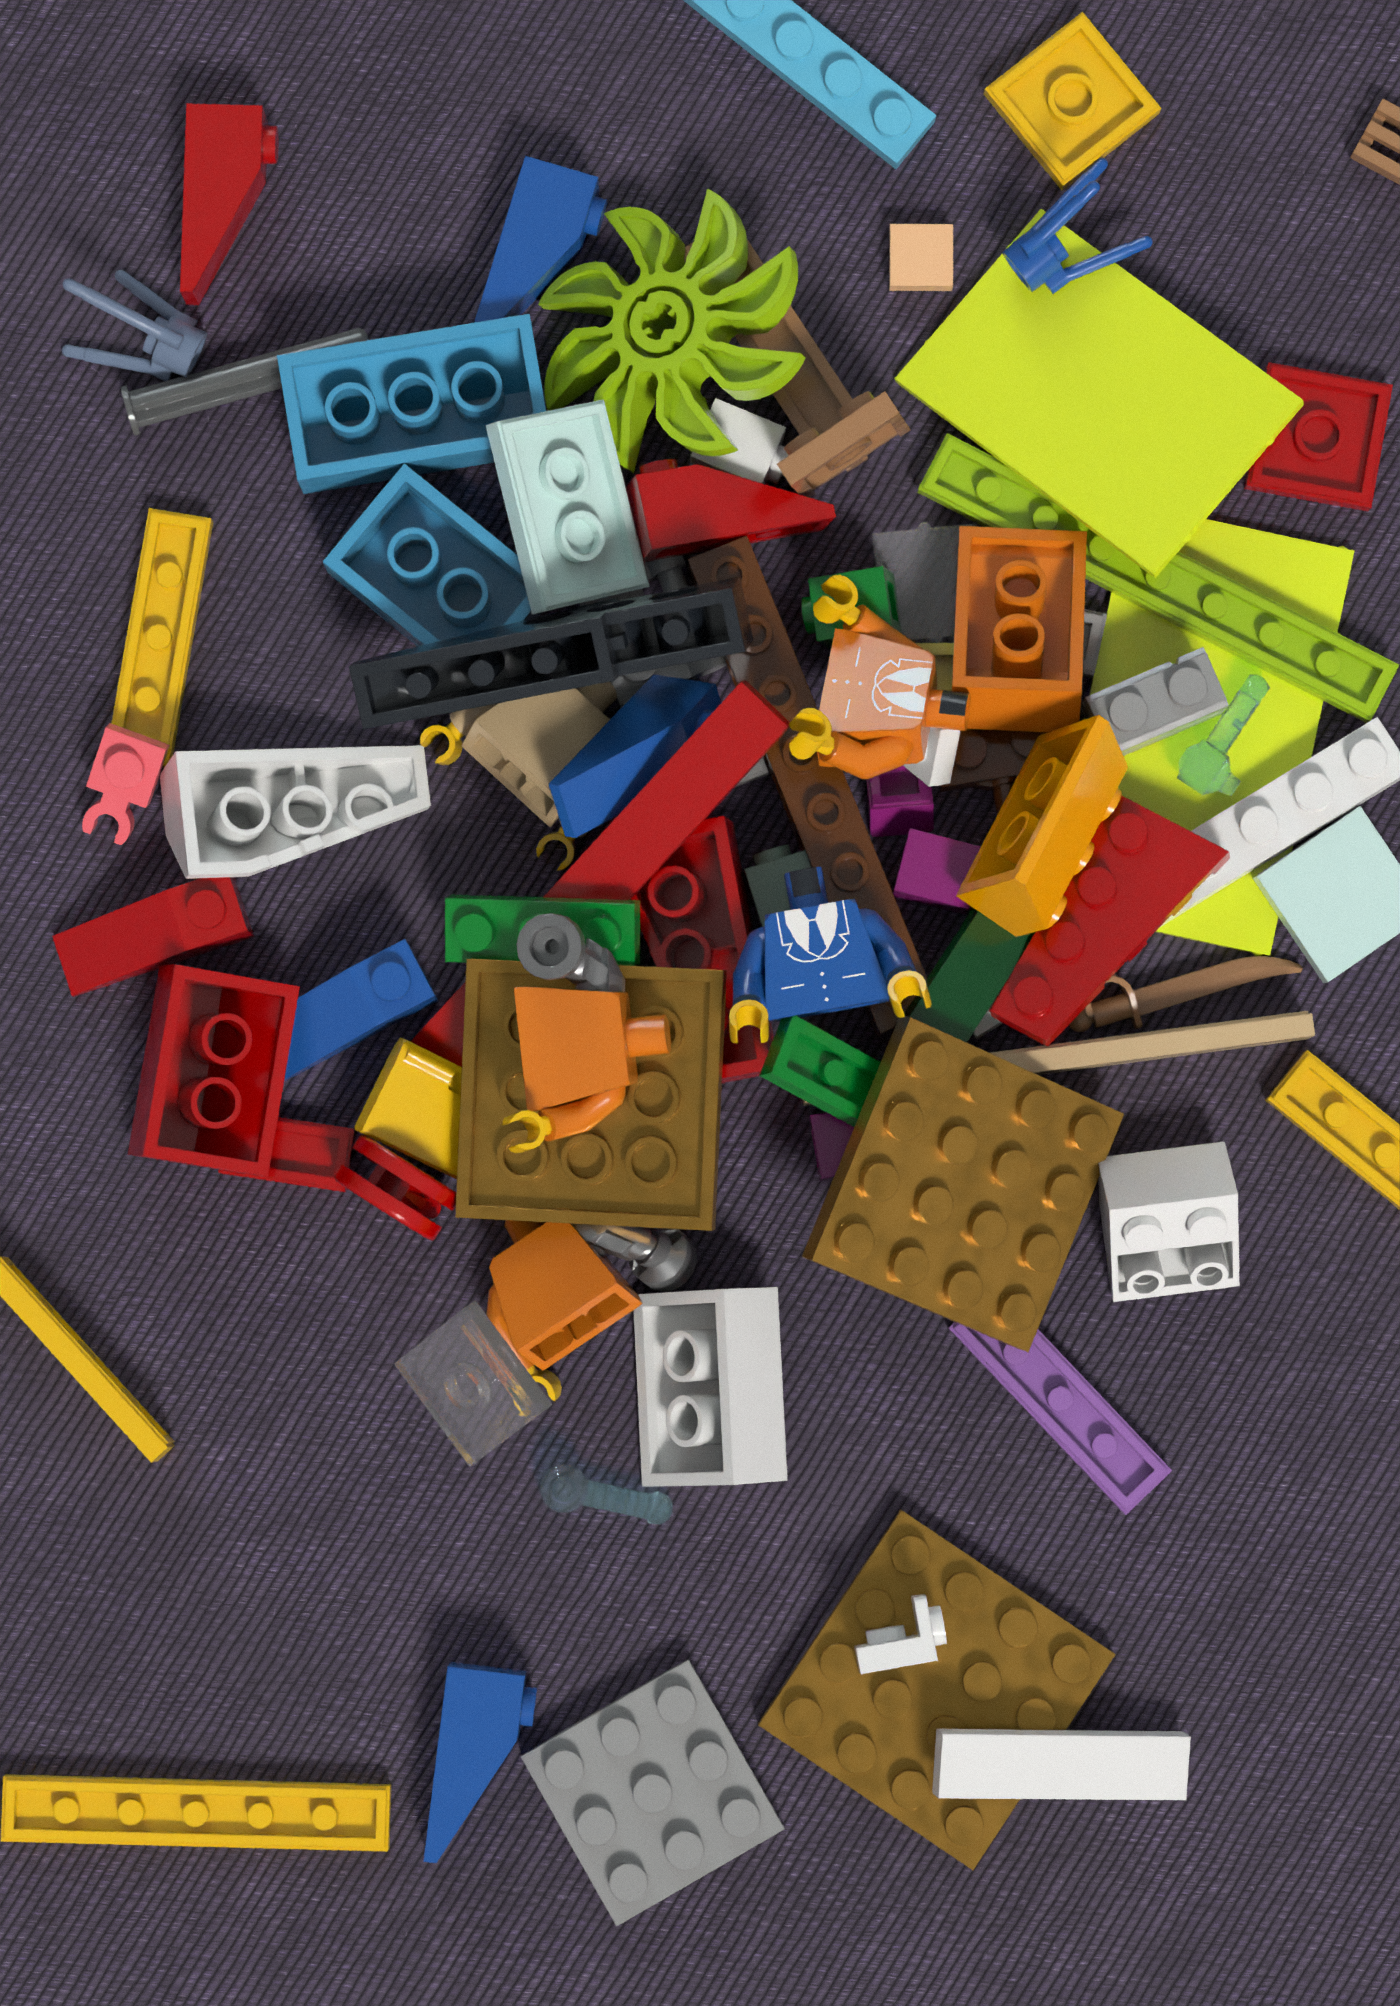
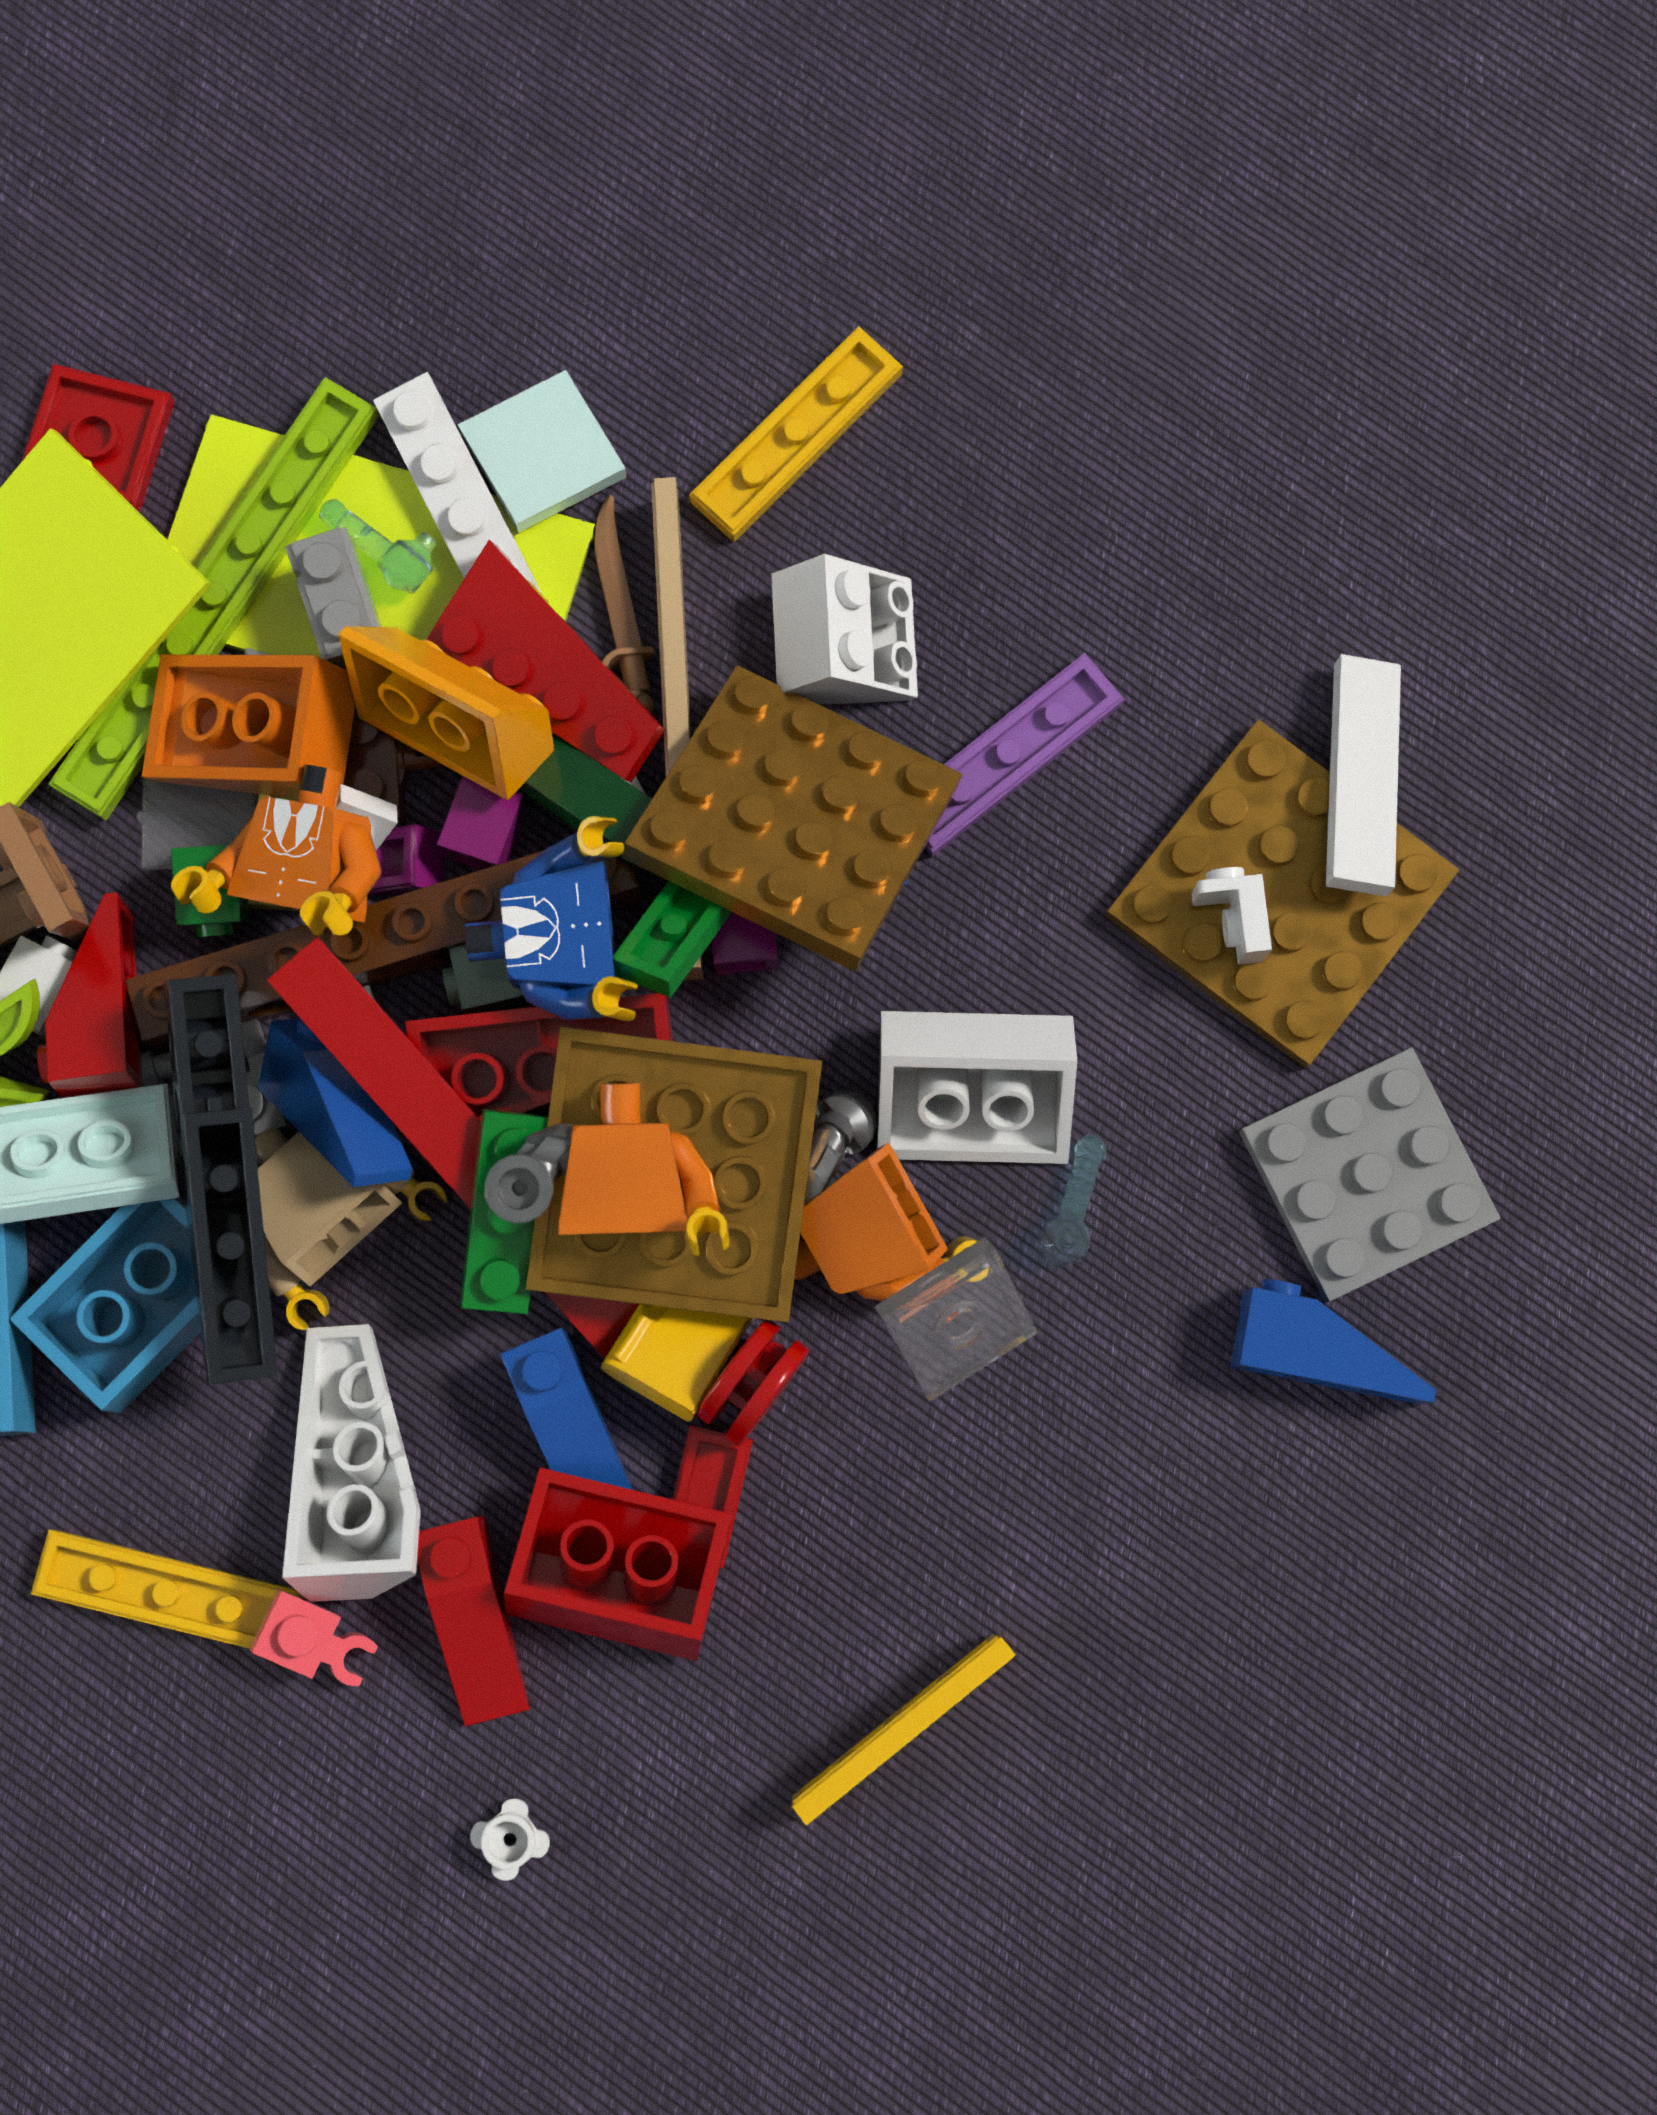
camera: 85 degrees left, 5 degrees down
(196, 1812) = (1369, 1638): yellow tile -> none

